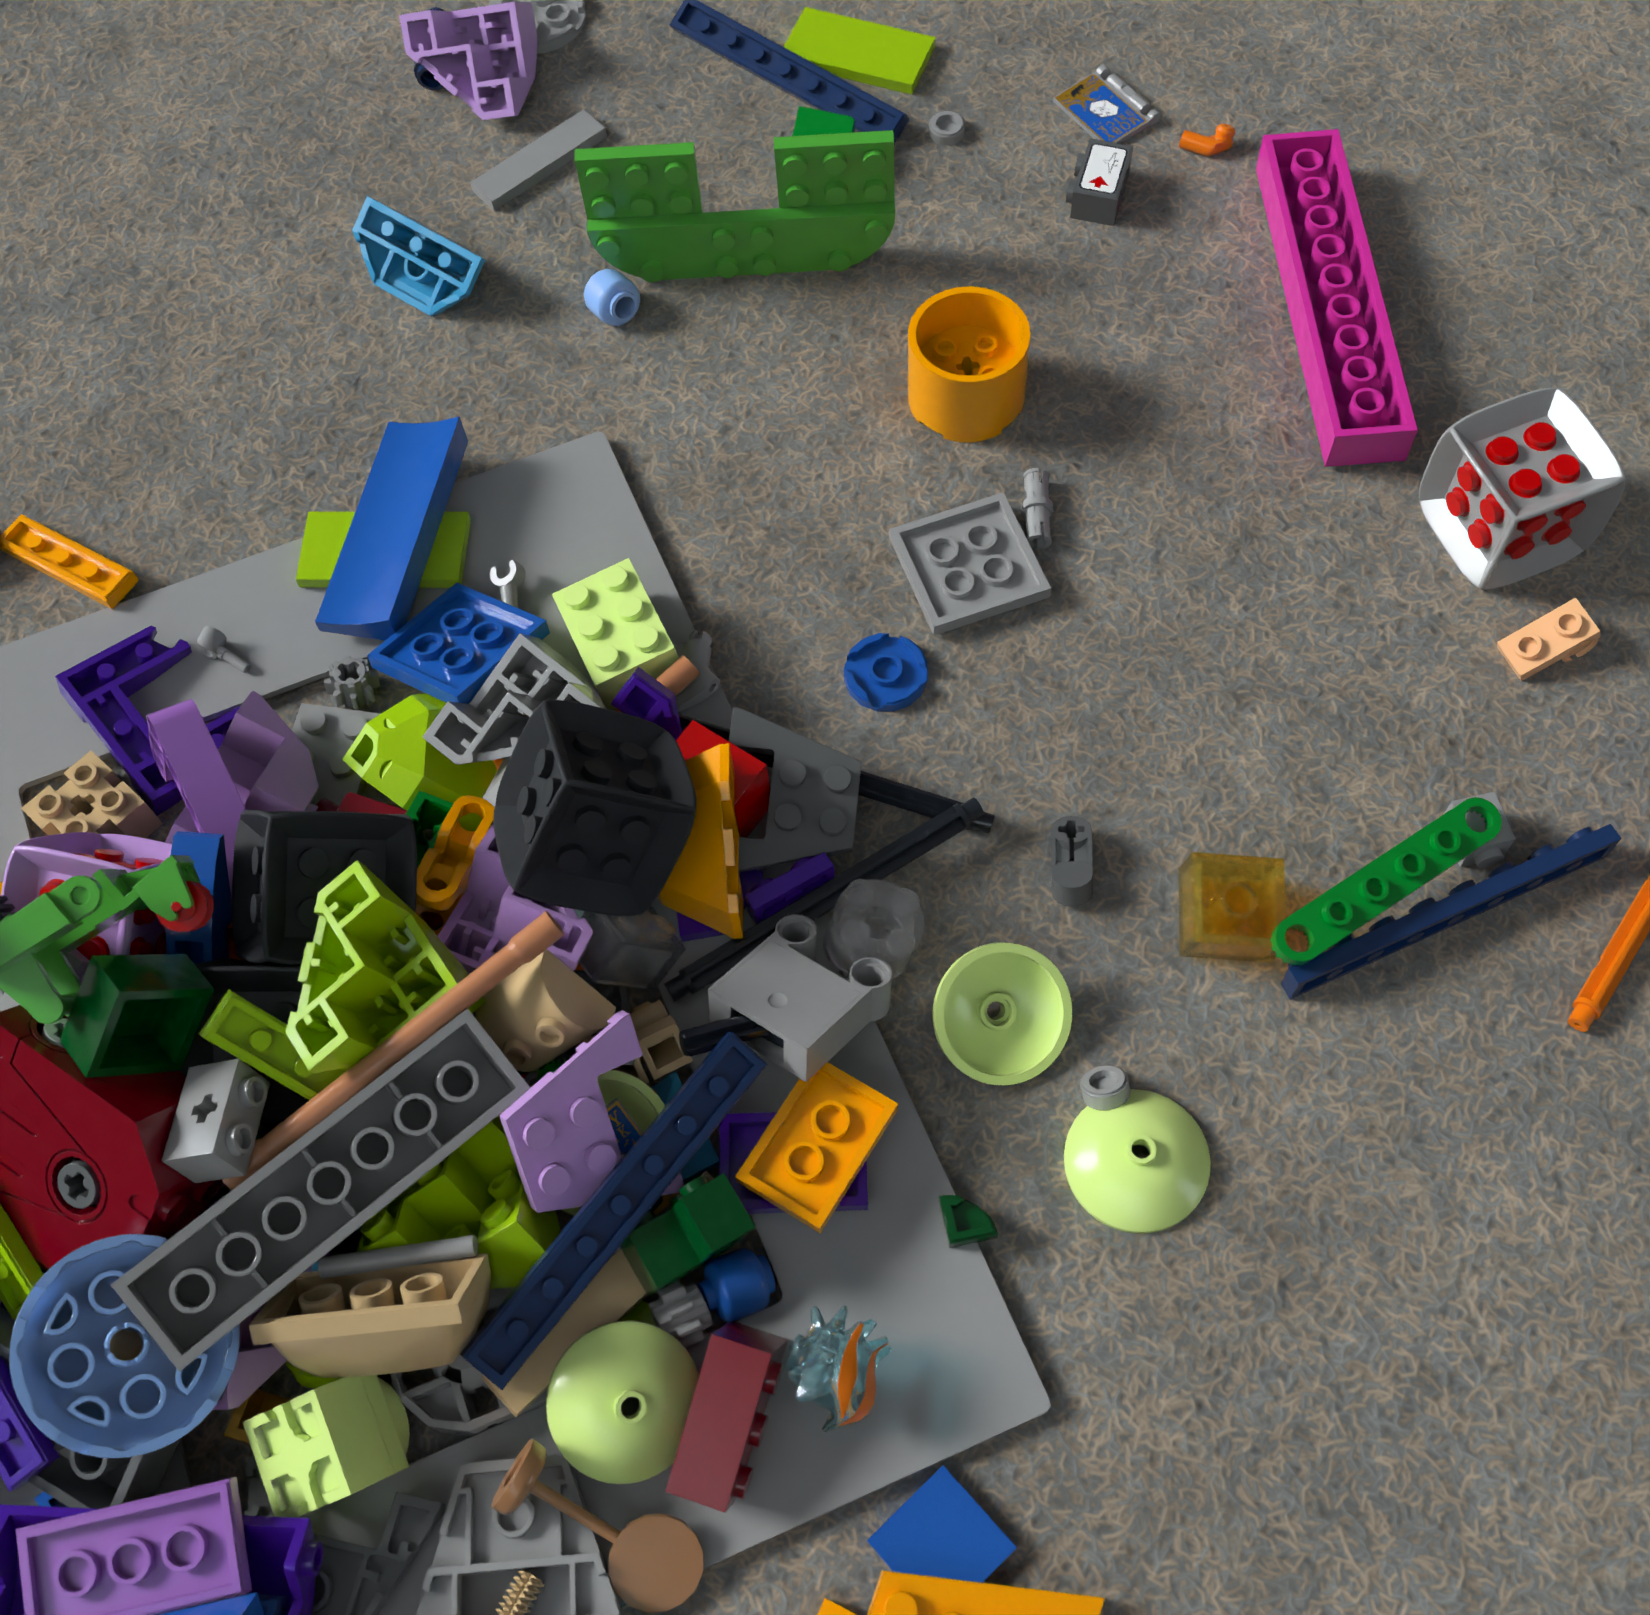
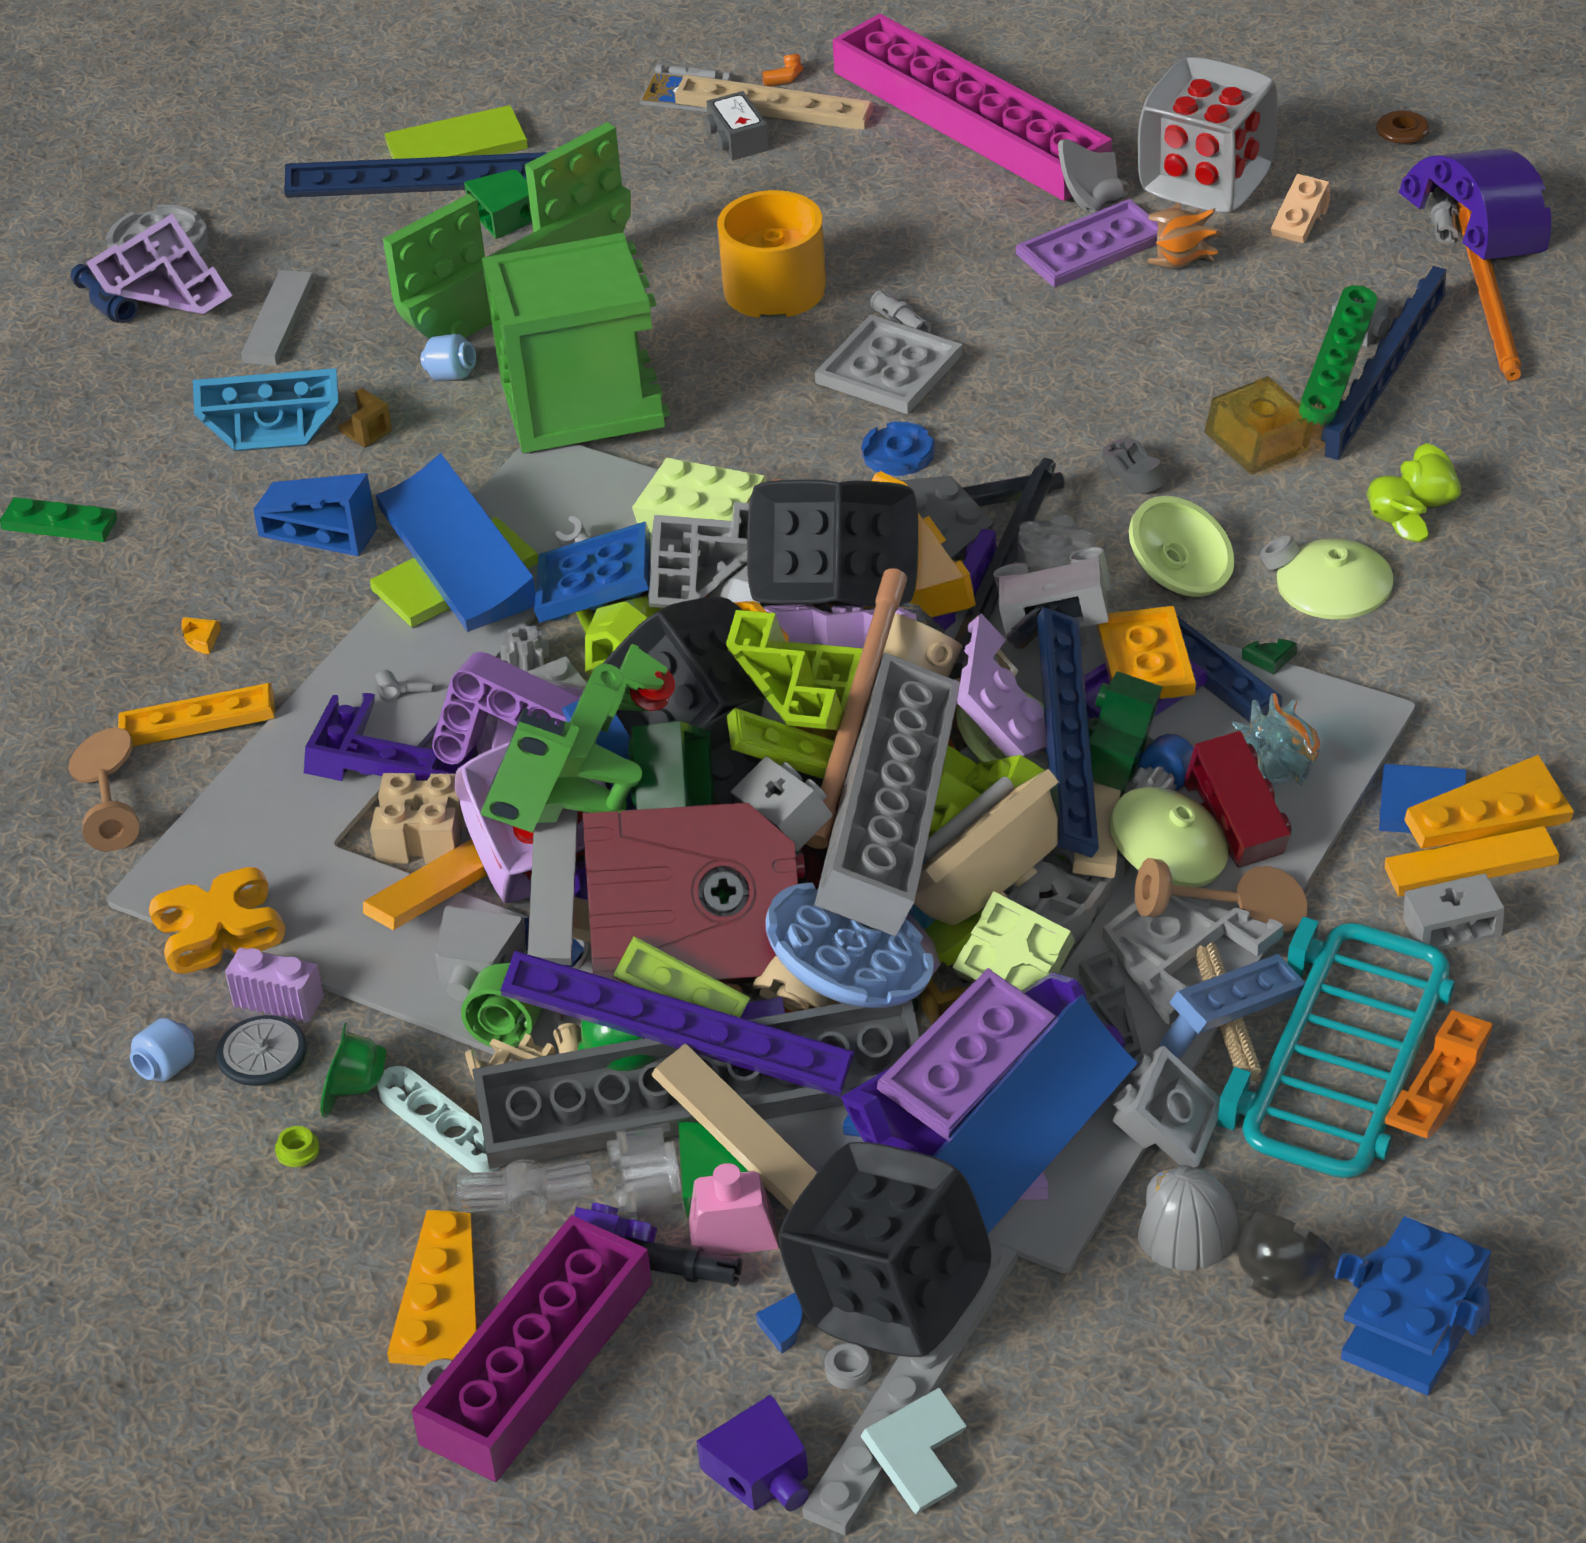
camera: 40 degrees left, 20 degrees down
(160, 470) = (200, 633): none -> light orange tile
(184, 271) = (58, 519): none -> green plate
(345, 406) = (319, 513): none -> blue wedge
(488, 327) = (369, 422): none -> pearl gold panel
(664, 364) = (571, 342): none -> bright green container
(895, 1206) = (1226, 676): none -> dark blue tile
(1167, 175) = (779, 102): none -> tan tile
(1304, 538) = (1090, 243): none -> medium lavender tile
(1328, 1115) = (1424, 484): none -> lime animal
(1363, 460) = (1090, 176): none -> light grey arm
(1386, 598) = (1182, 236): none -> hair

